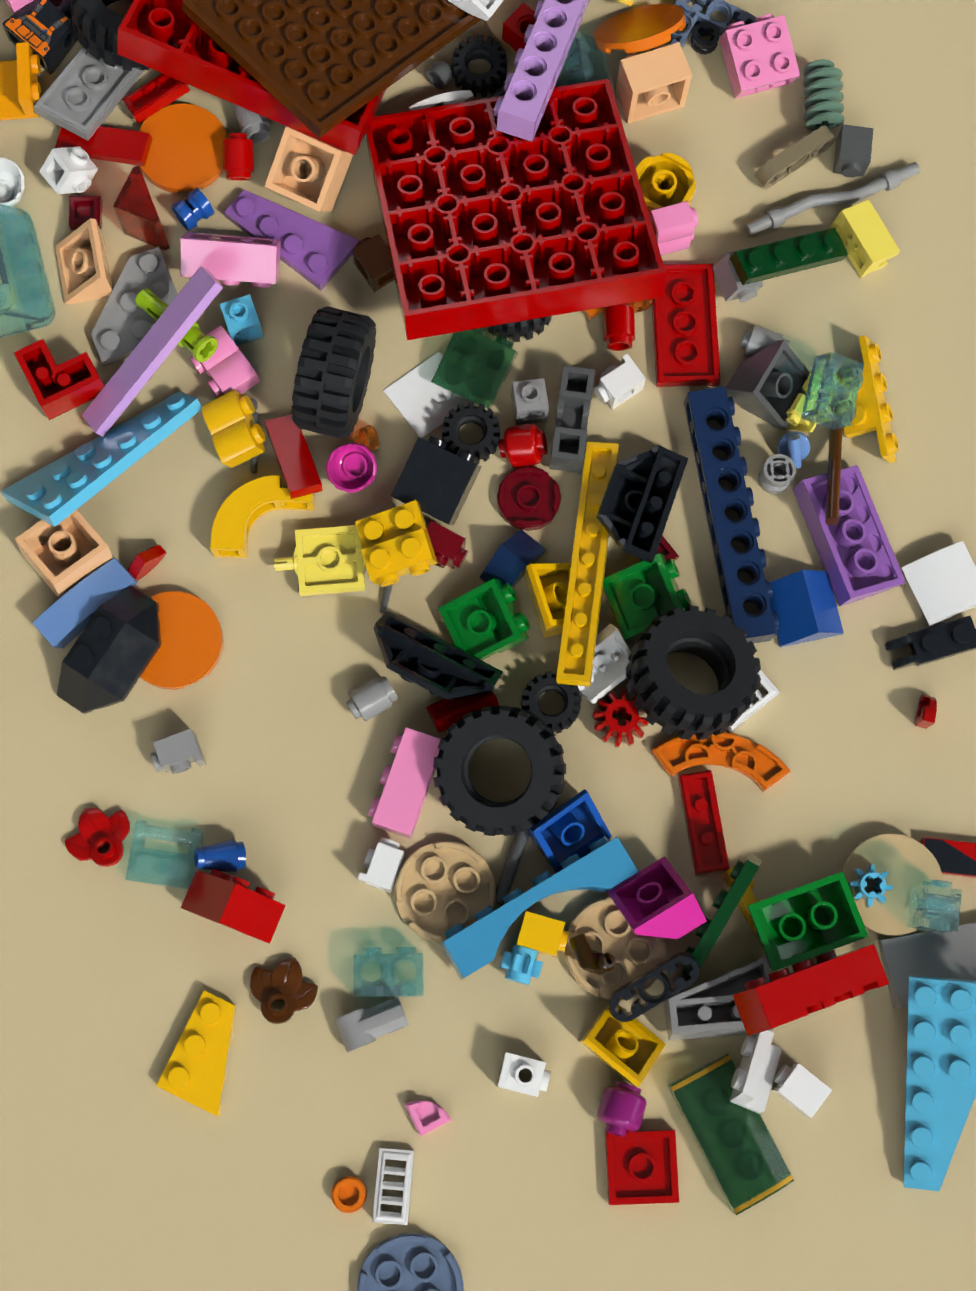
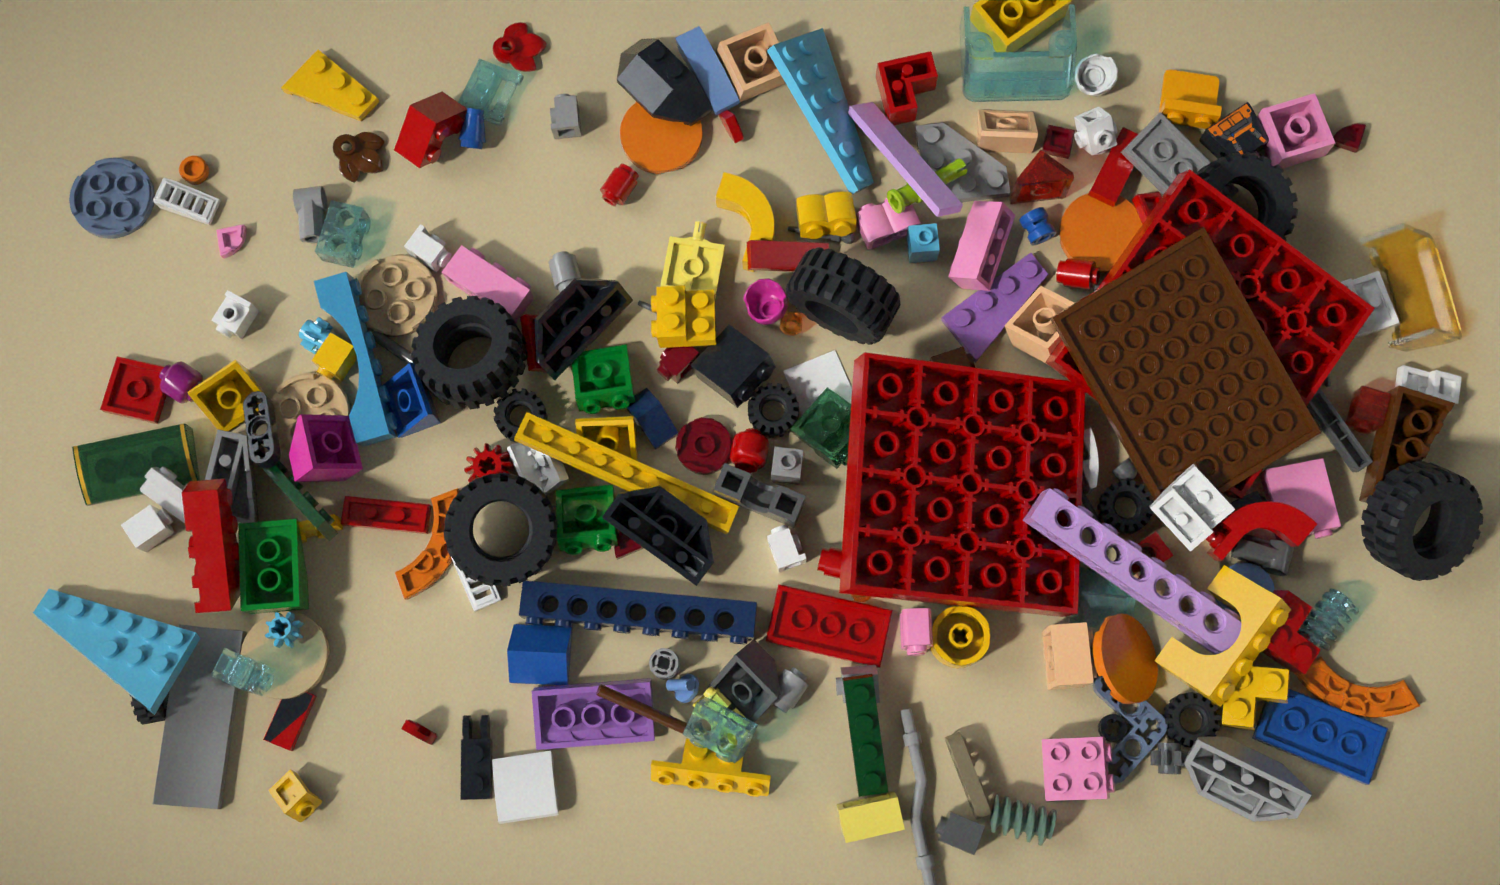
camera: 115 degrees right, 0 degrees up
(250, 667) = (619, 185): none -> red brick
(589, 959) = (302, 388): dark brown arm -> none

